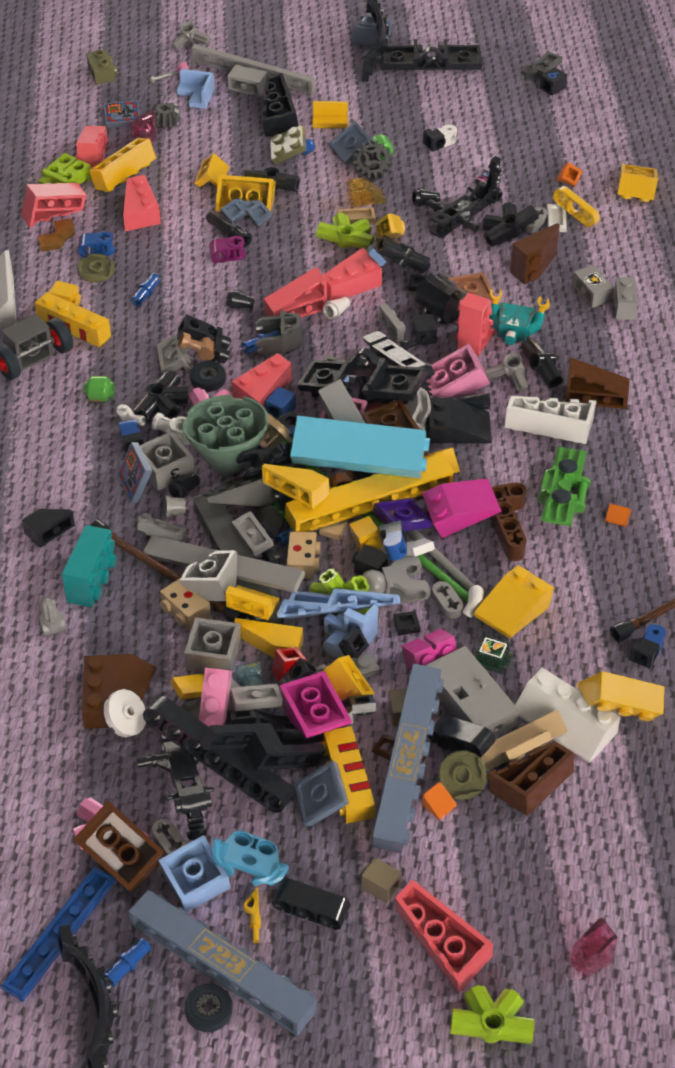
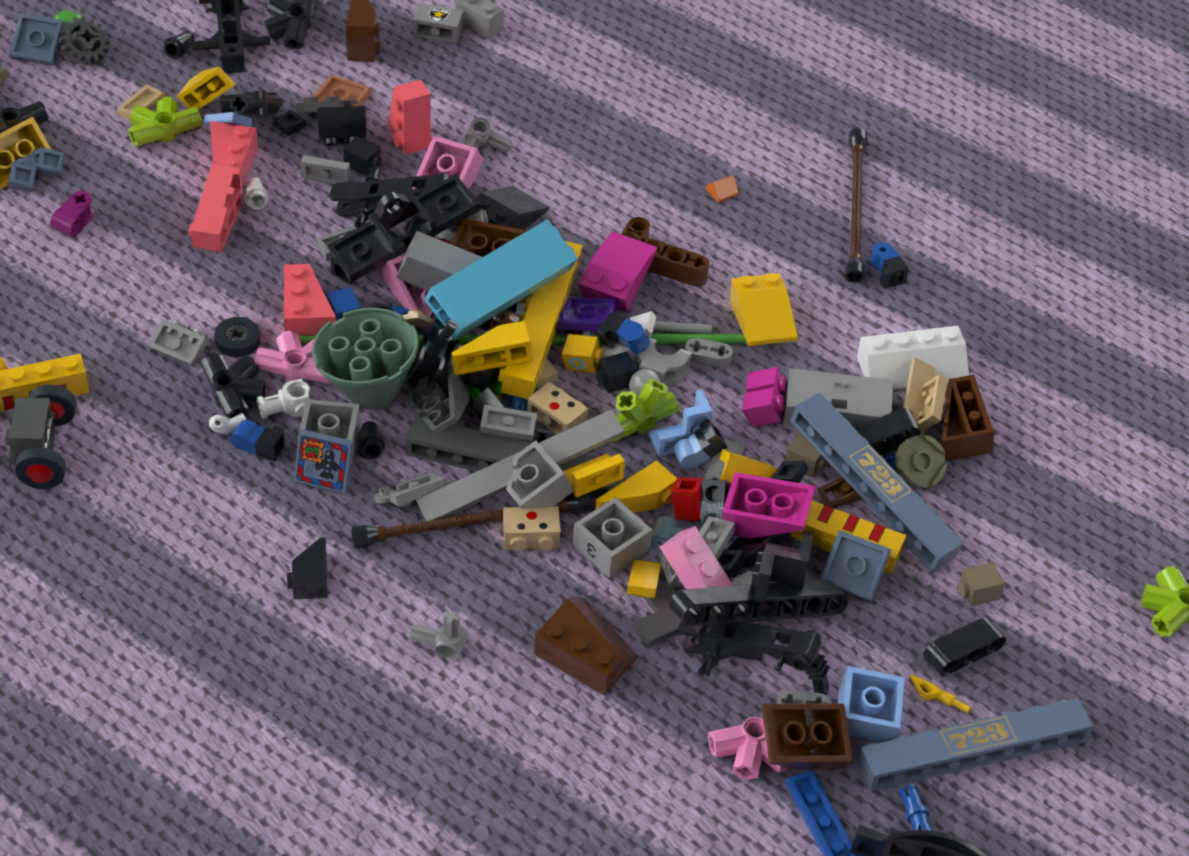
camera: 55 degrees left, 0 degrees up
(89, 566) = (416, 566): teal brick -> none
(99, 389) = (161, 423): bright green head -> none
(124, 713) = (631, 647): white plate -> none
(145, 289) = (53, 307): blue pin -> none
(173, 506) = (389, 465): light grey piece -> none
(204, 339) = (190, 305): black hips -> none
(217, 1017) = (1012, 797): black bush -> none
(227, 228) = (52, 196): black pin -> none
(239, 300) = (156, 252): black cone -> none
(250, 855) = (883, 651): dark azure piece -> none
(251, 344) = (237, 271): blue pin -> none
(291, 333) = (253, 239): dark grey piece -> none
(312, 604) = (655, 418): light blue wedge -> none
(363, 193) = (118, 79): clear yellow slope -> none
(406, 623) = (712, 393): black tile -> none
(438, 801) = (929, 495): orange slope -> none
(446, 937) = (1076, 577): coral wedge -> none
(475, 598) = (732, 332): white arm -> none
(479, 400) = (494, 180): black cone -> none
(493, 654) = (805, 358): clear green brick -> none
(516, 321) = (436, 83): teal torso -> none
(542, 361) = (508, 115): black piece -> none
(551, 418) = (575, 150): white wedge -> none
(556, 487) = (661, 197): bright green piece -> none
(594, 383) = (566, 102): reddish brown wedge -> none
(594, 948) = (1169, 491): clear pink slope -> none
(623, 695) = (943, 308): yellow slope -> none

